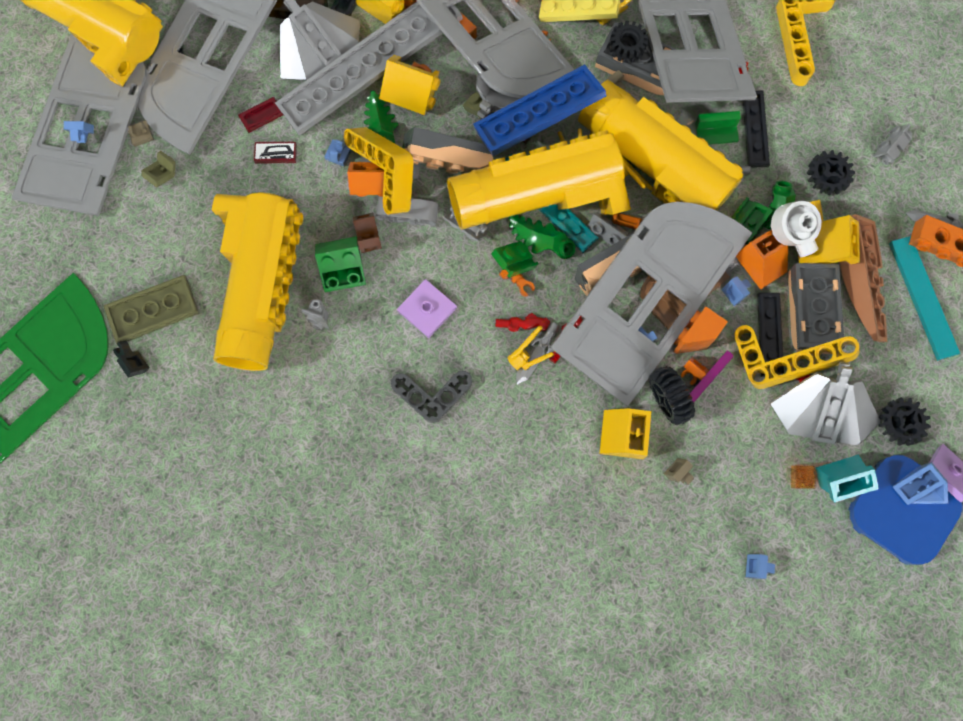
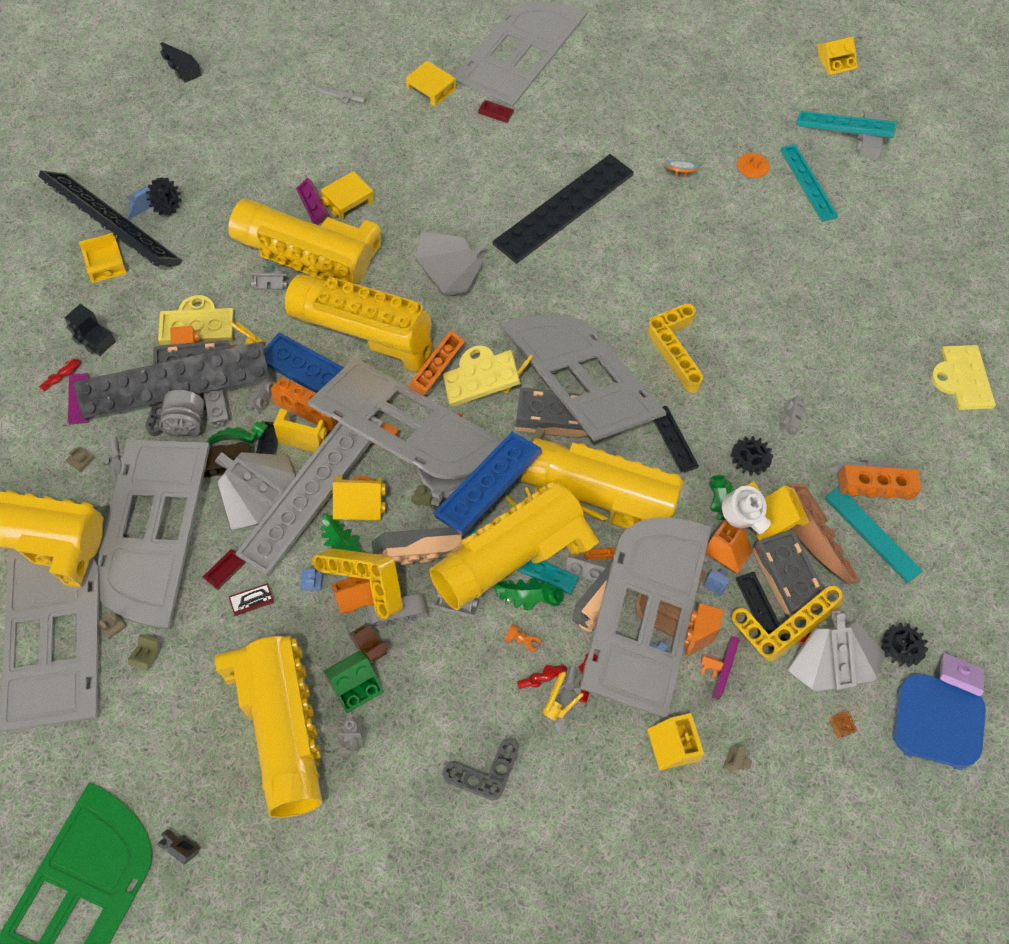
camera: 25 degrees left, 15 degrees down
(78, 130) = (51, 641): medium blue tile -> none
(151, 309) = (181, 790): olive tile -> none
(427, 308) = (449, 694): lavender plate -> none
(514, 258) = (513, 620): green plate -> none
(630, 31) = (539, 391): black tyre -> none
(672, 395) = (702, 693): black gear -> none
(718, 127) = (642, 448): green panel -> none
(752, 216) = (704, 513): green plate -> none
(758, 566) = (840, 819): medium blue tile -> none
(847, 478) = (880, 711): teal hips -> none
(923, 486) = (945, 693): medium blue slope -> none

